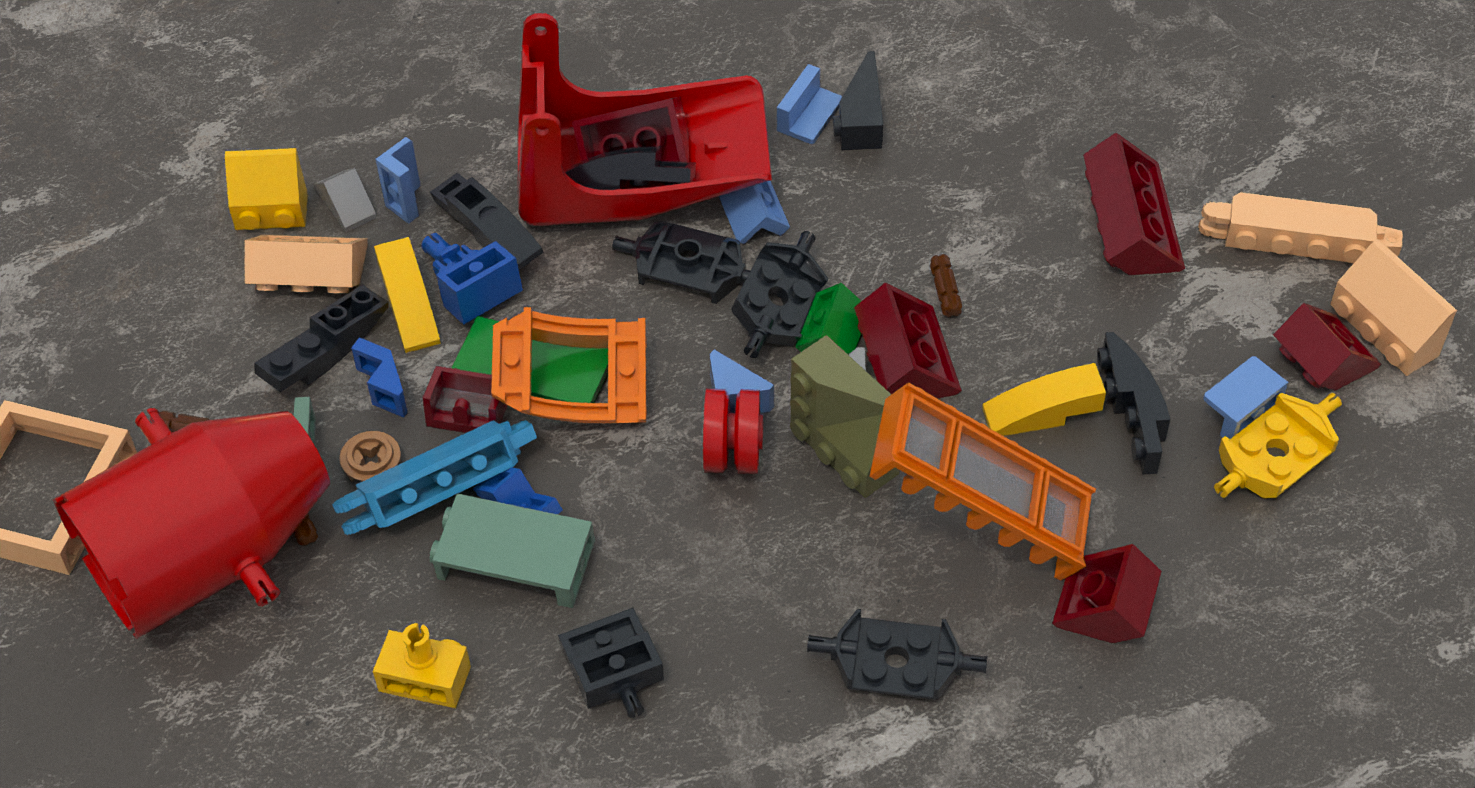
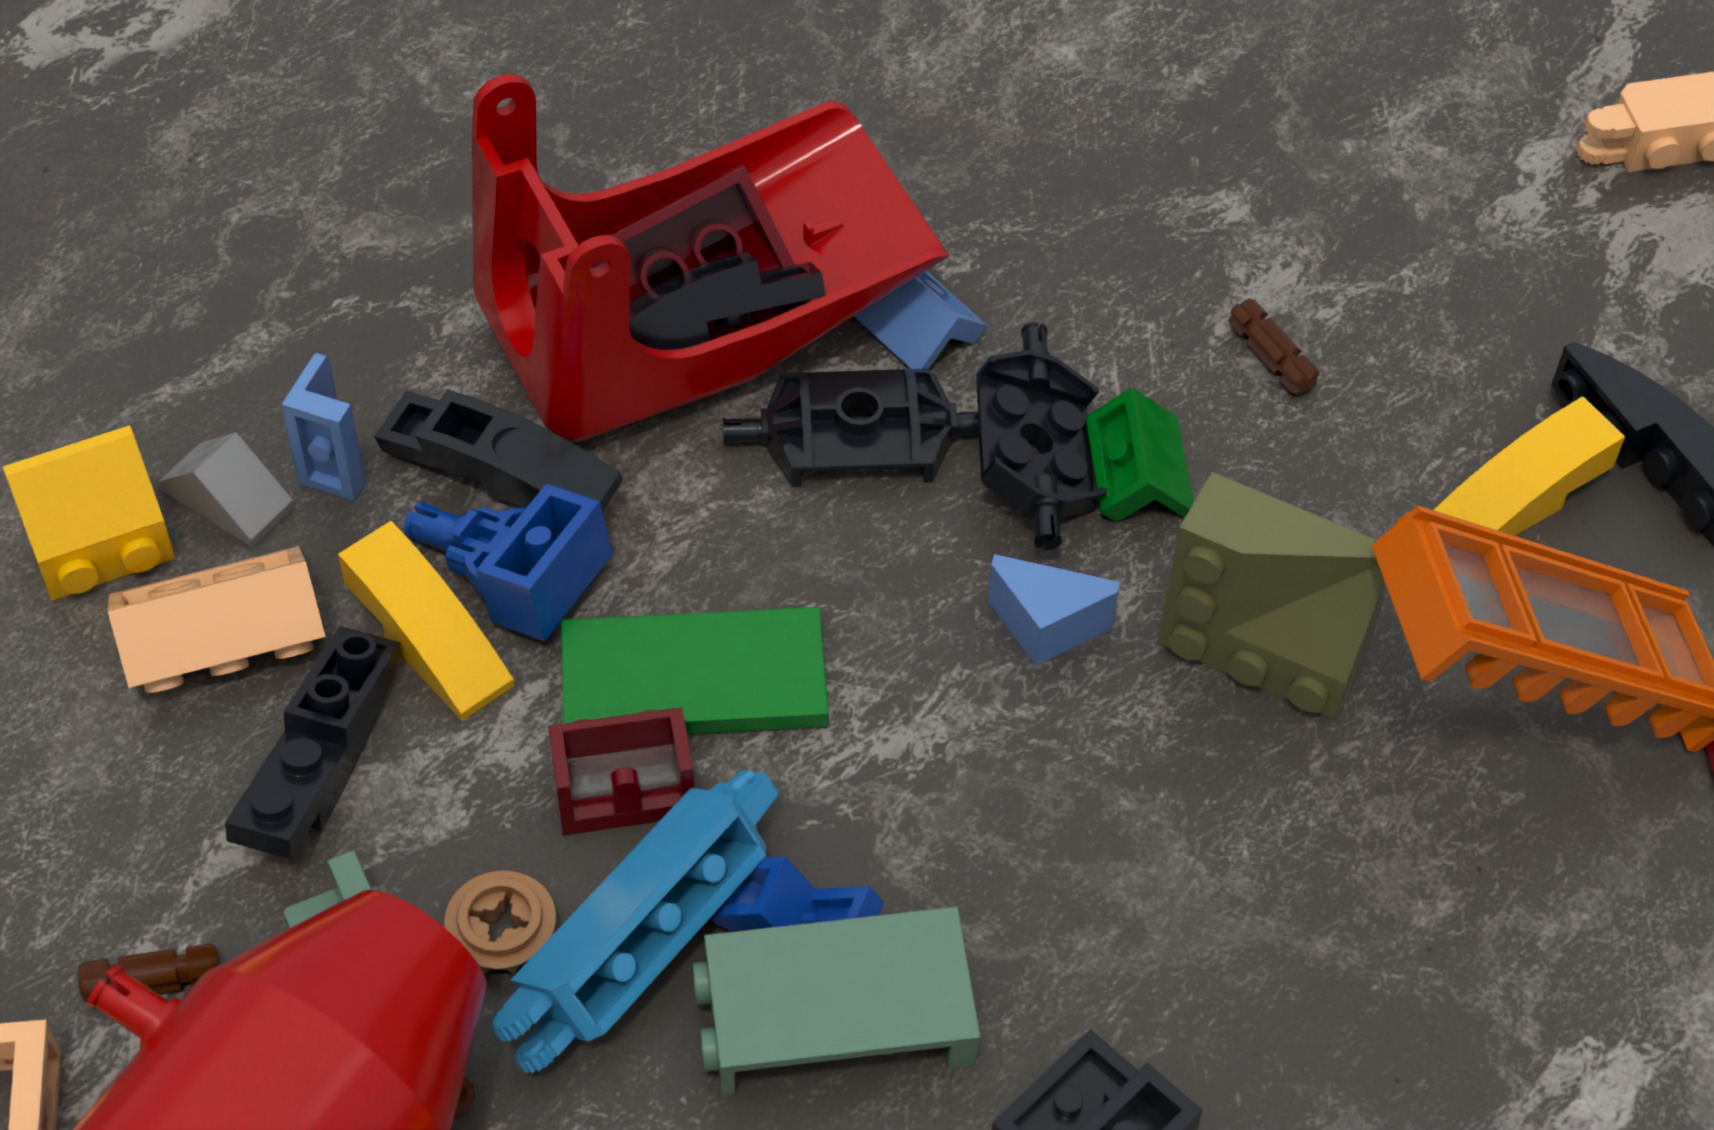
camera: 25 degrees left, 0 degrees up
(384, 381) = (473, 787): blue slope -> none
(626, 365) = (859, 617): orange wedge -> none
(732, 431) = (1100, 678): red wheel -> none
(806, 107) = (915, 133): medium blue panel -> none
(860, 110) = (1007, 121): black slope -> none
(866, 644) = (1584, 934): black plate -> none
(905, 342) = (1263, 443): dark red slope -> none
(1132, 209) = (1476, 153): dark red slope -> none

